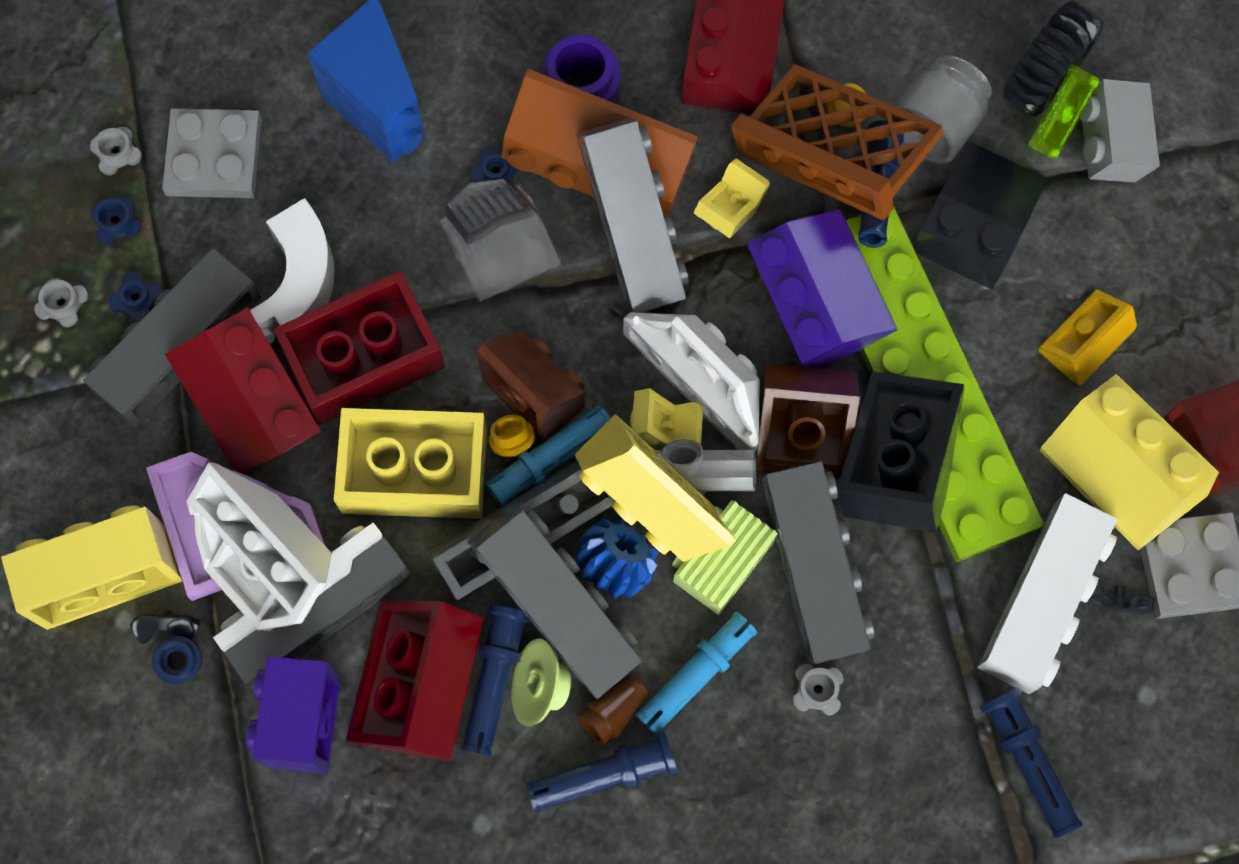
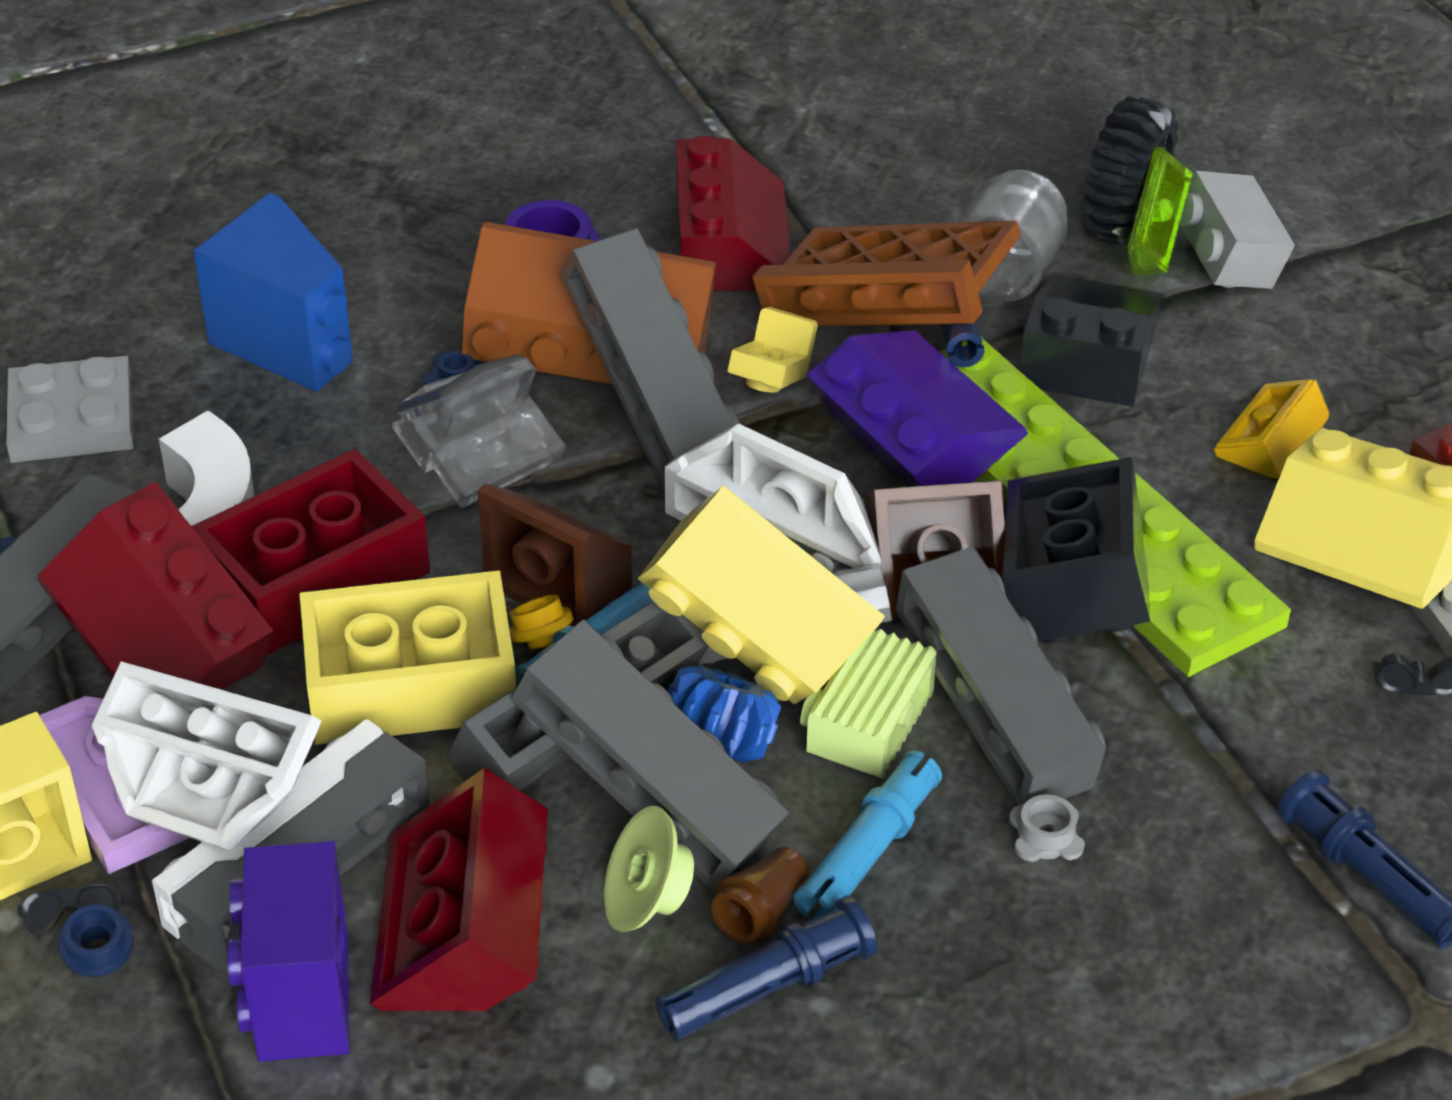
camera: 10 degrees left, 30 degrees down
(499, 656) = (579, 859): dark blue pin -> none
(1048, 594) = (1324, 672): white brick -> none

